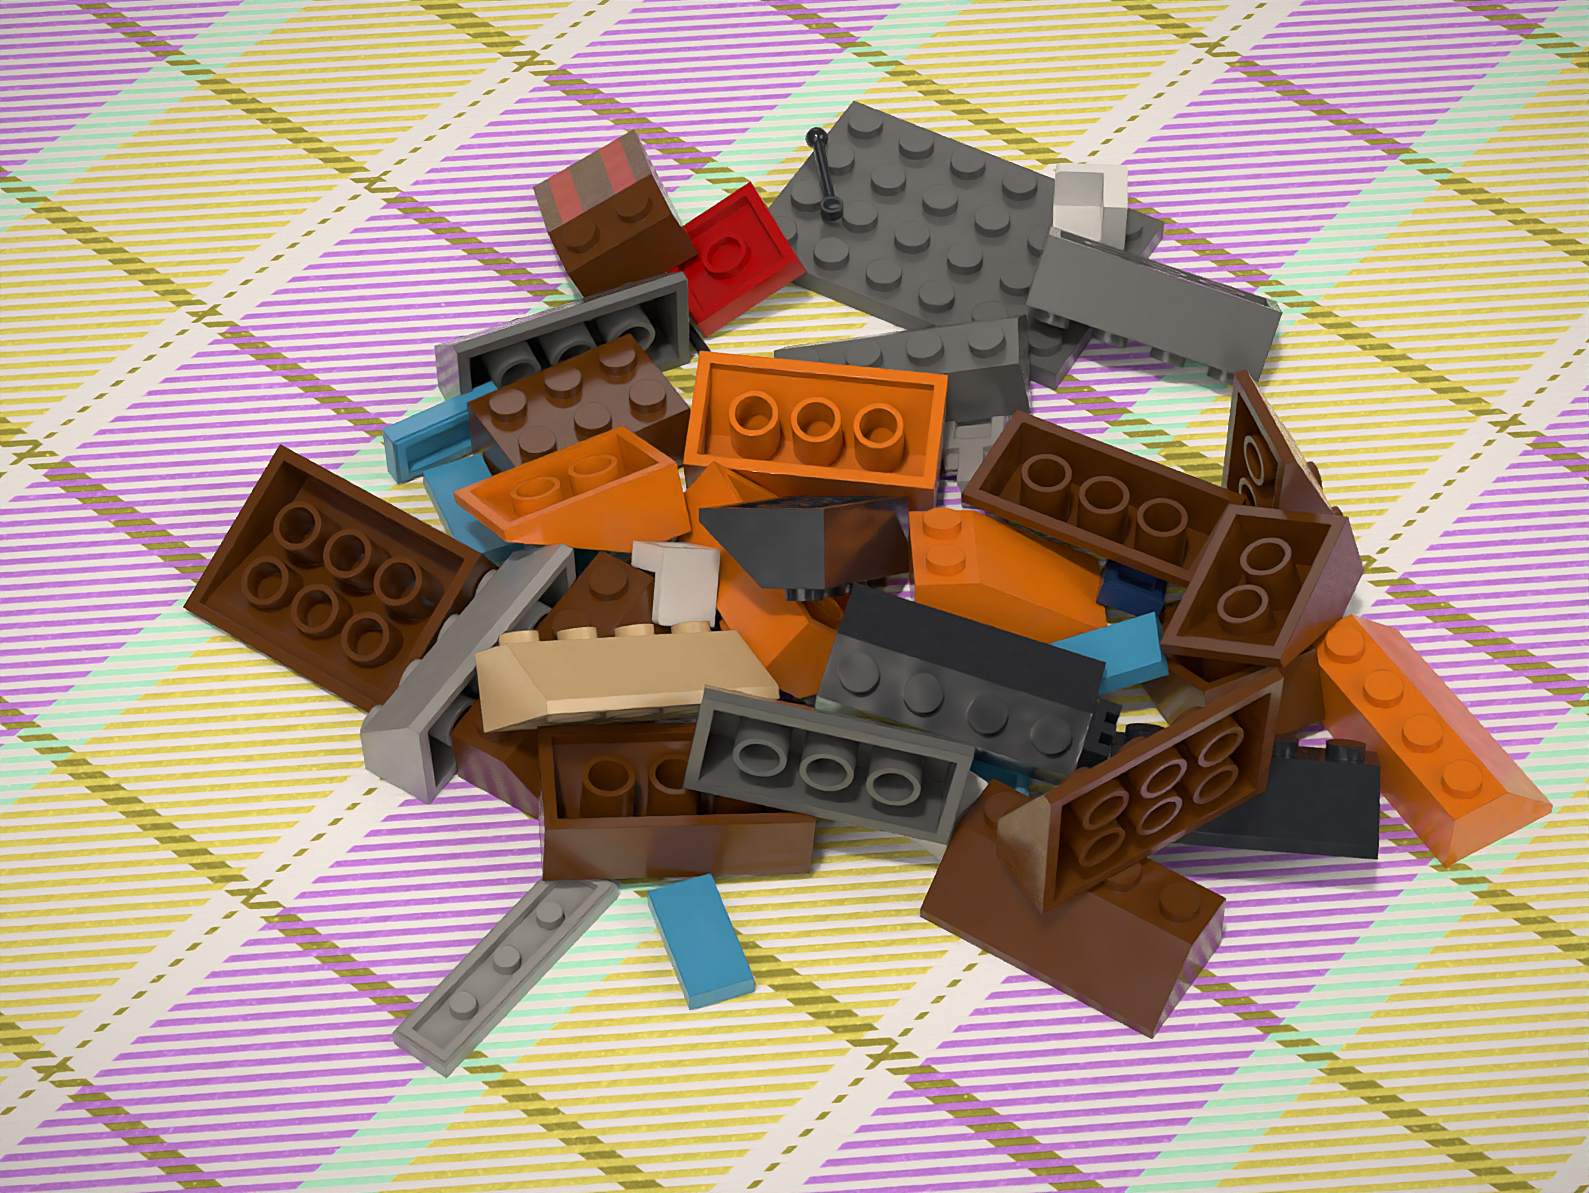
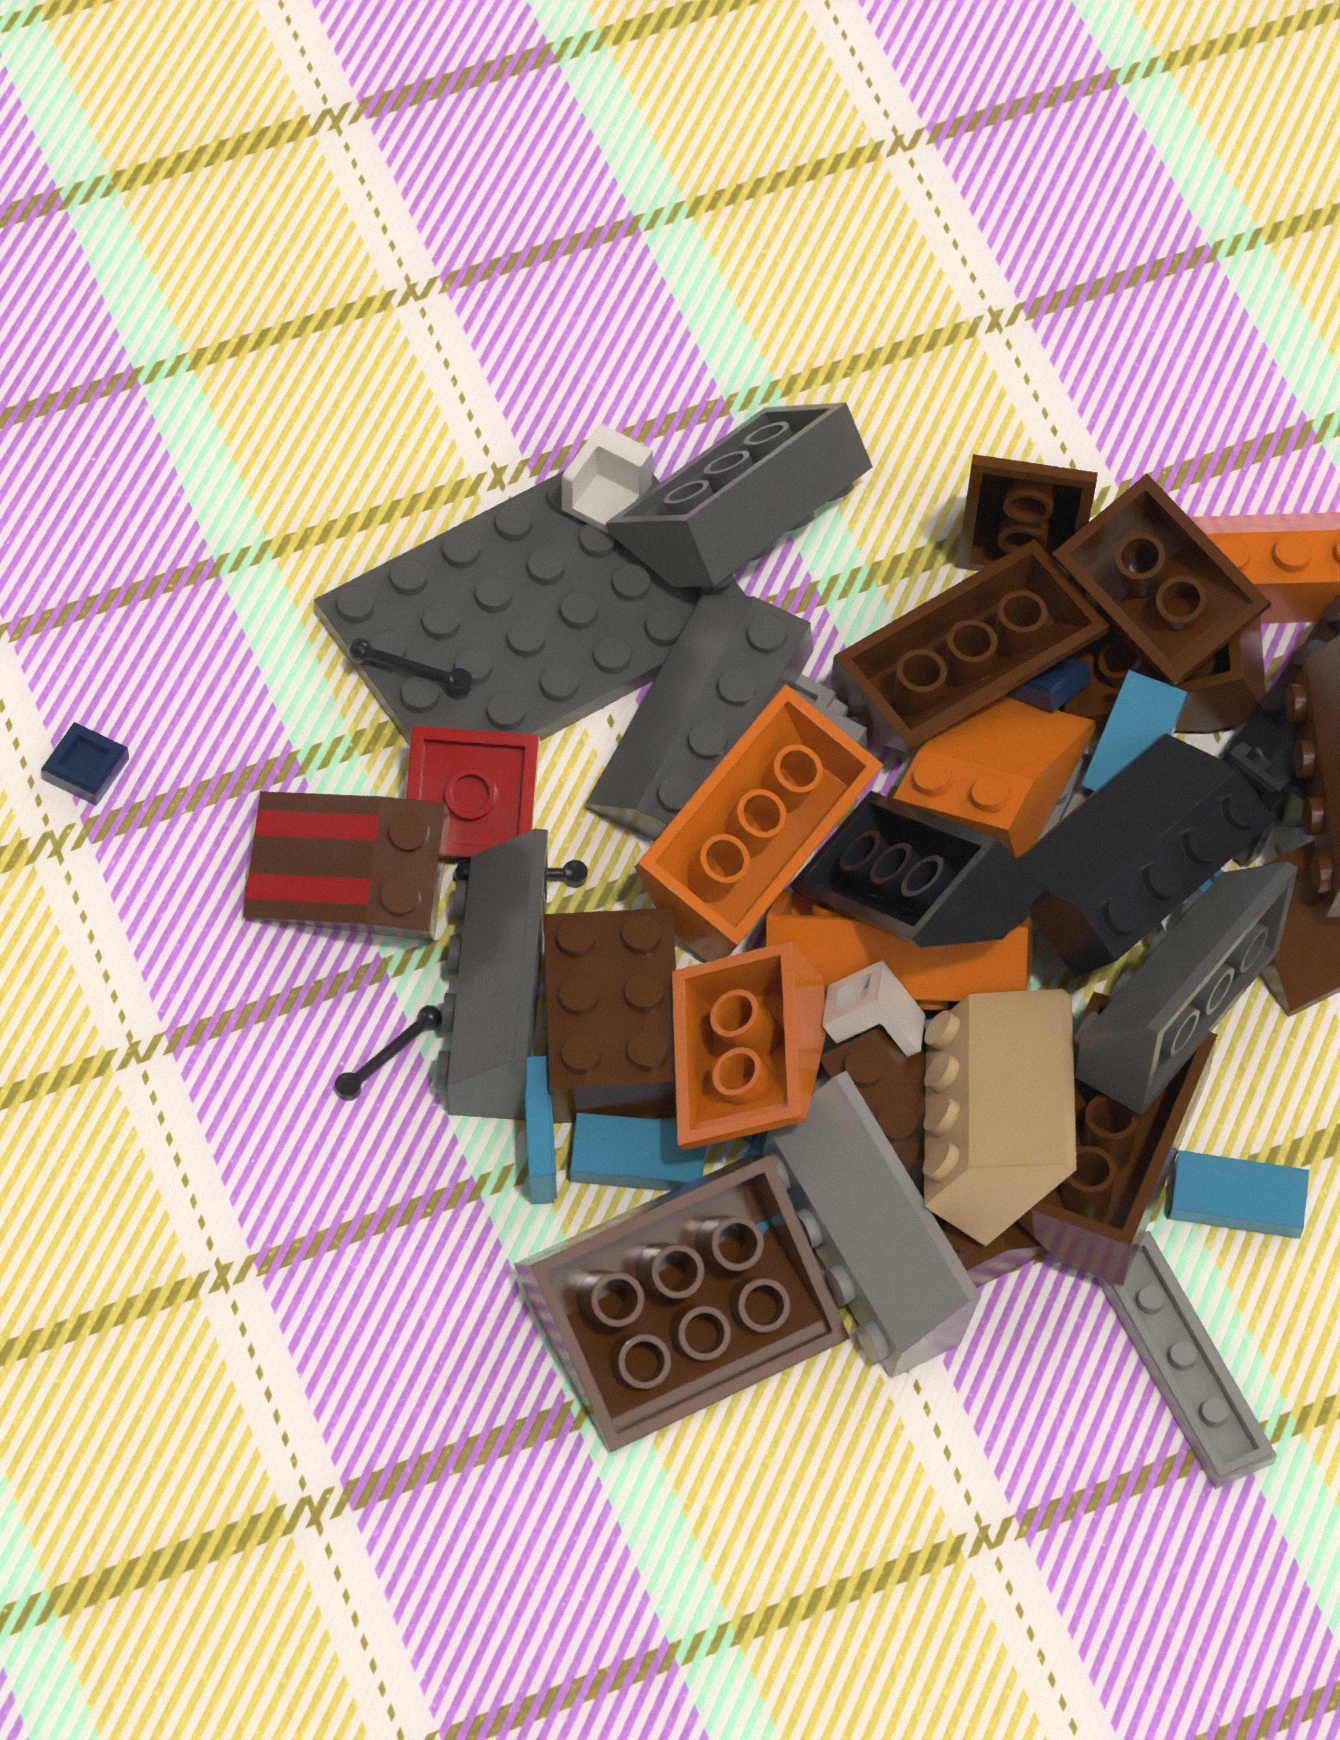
camera: 65 degrees left, 10 degrees up
(422, 314) = (349, 1084): none -> black hinge
(608, 42) = (85, 763): none -> dark blue tile

